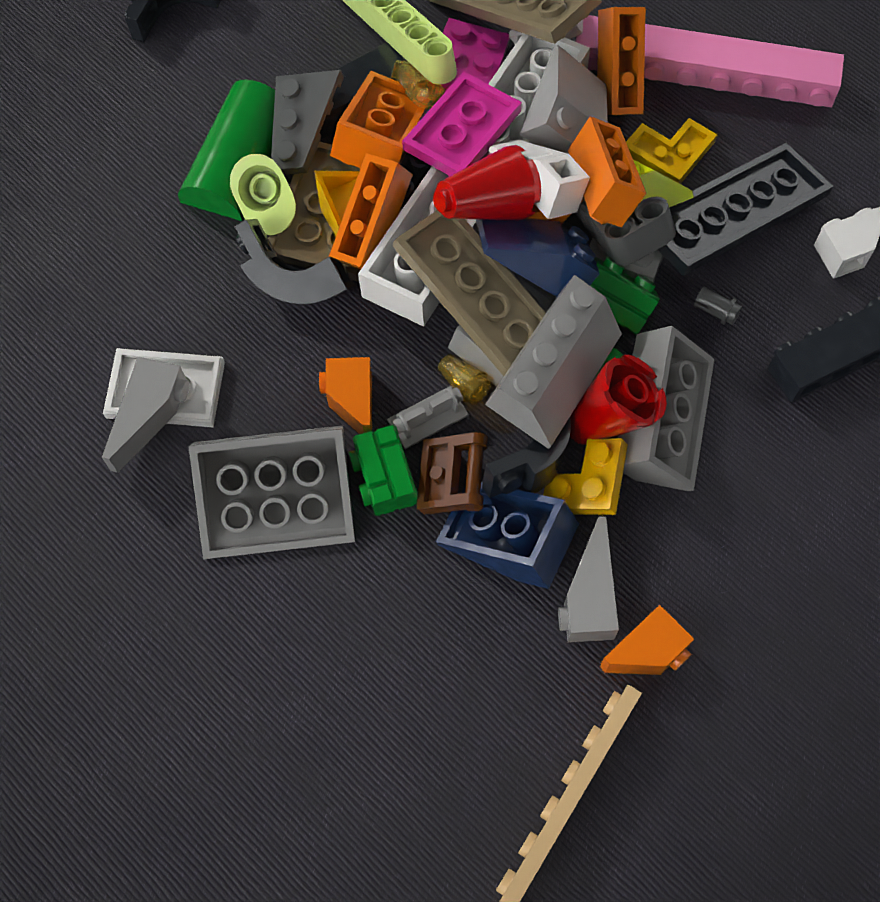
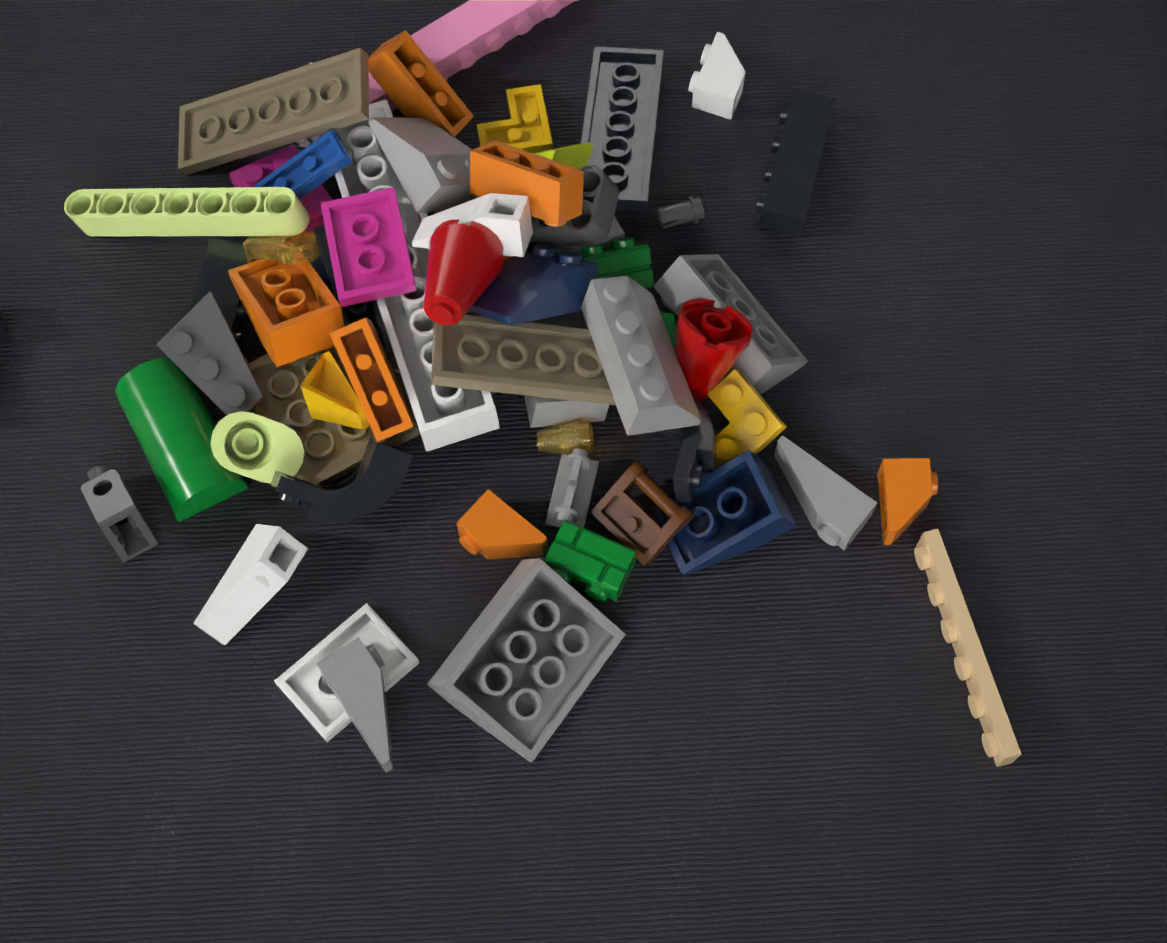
camera: 50 degrees left, 0 degrees up
(144, 159) = (111, 503): none -> dark grey torso
(168, 273) = (250, 581): none -> white slope
(489, 48) = (310, 166): none -> blue tile

